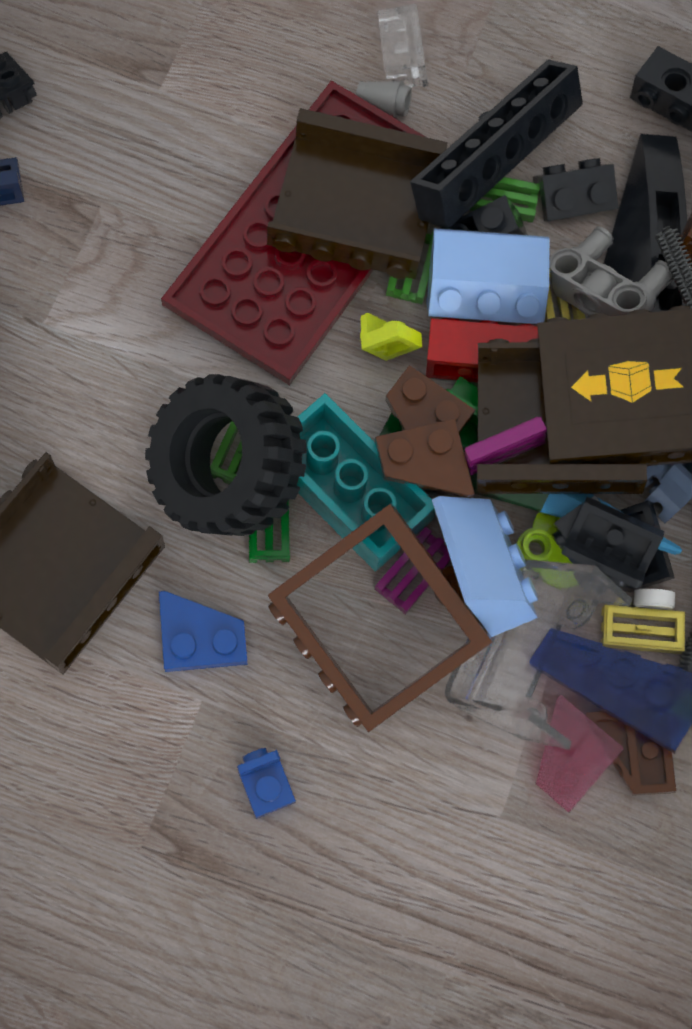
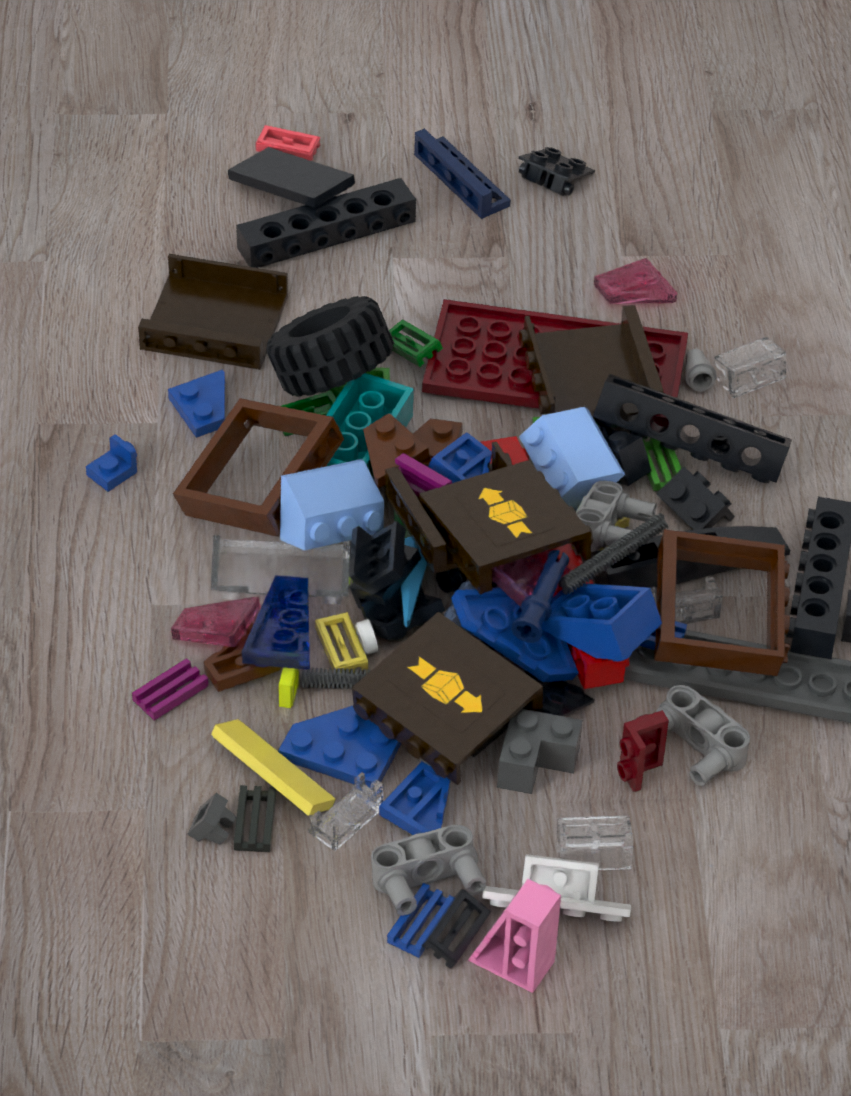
camera: 75 degrees right, 25 degrees down
(225, 95) = (635, 284): none -> clear pink wing
(247, 354) = (408, 348): none -> green tile
(387, 338) = (489, 422): neon yellow bracket -> none
(490, 391) = (462, 459): none -> blue wing
(663, 840) = (166, 685): none -> magenta tile

